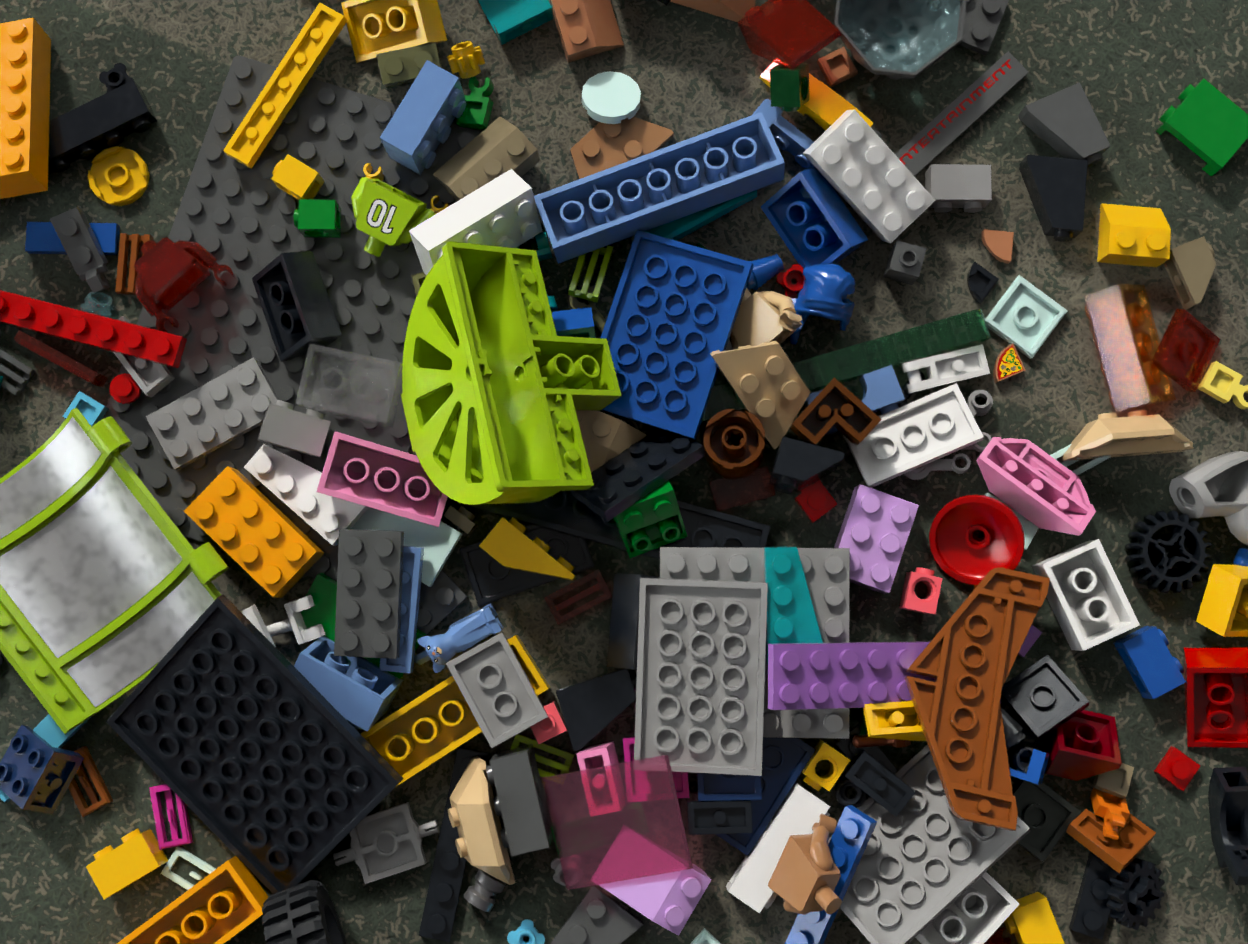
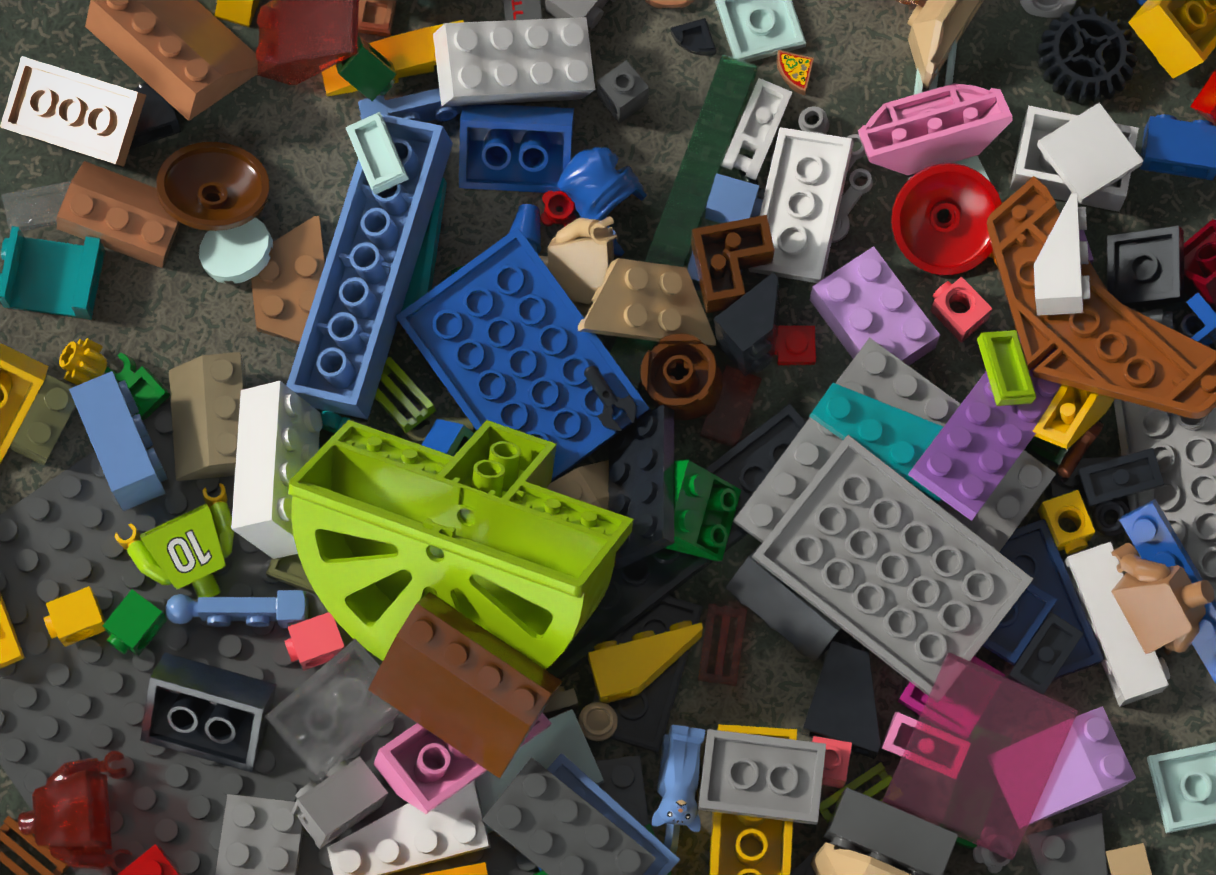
camera: 55 degrees left, 10 degrees down
(386, 338) = (314, 641): none -> coral brick
(395, 304) = (287, 609): none -> medium blue plate
(411, 454) = (463, 684): none -> reddish brown slope
(467, 554) = (598, 721): none -> tan plate
(645, 39) = (210, 173): none -> reddish brown dish
(679, 409) = (609, 400): none -> black bar
(734, 134) = (377, 153): none -> light aqua tile
(895, 656) = (1006, 368): none -> lime tile
(992, 643) = (1058, 266): none -> white slope
(1095, 605) = (1090, 153): none -> white tile

